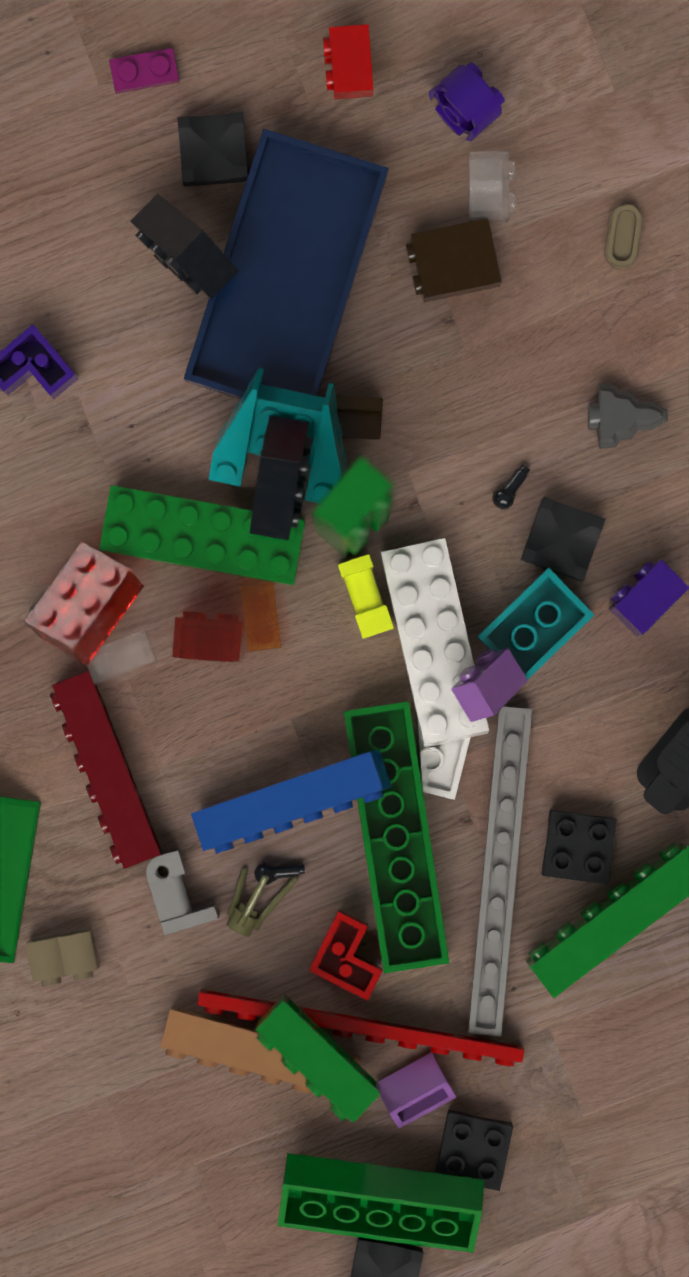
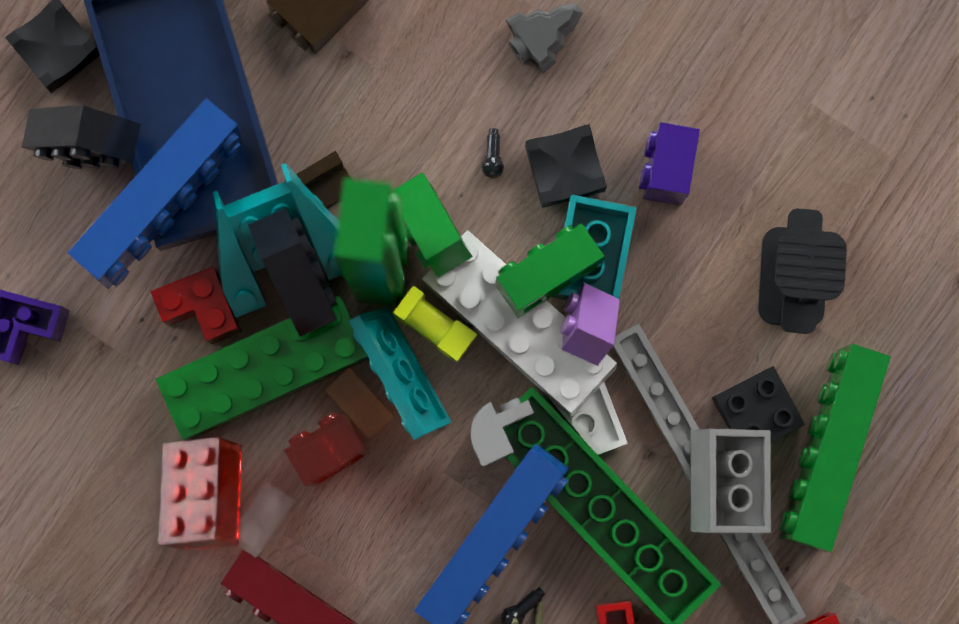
camera: 40 degrees left, 5 degrees down
(193, 442) = (199, 297): none -> red brick
(213, 339) = (157, 195): none -> blue brick
(310, 615) = (400, 372): none -> teal plate
(346, 713) = (487, 430): none -> light grey brick
(416, 513) = (430, 226): none -> green brick
(486, 617) = (549, 269): none -> green brick
(514, 887) = (730, 481): none -> light grey slope

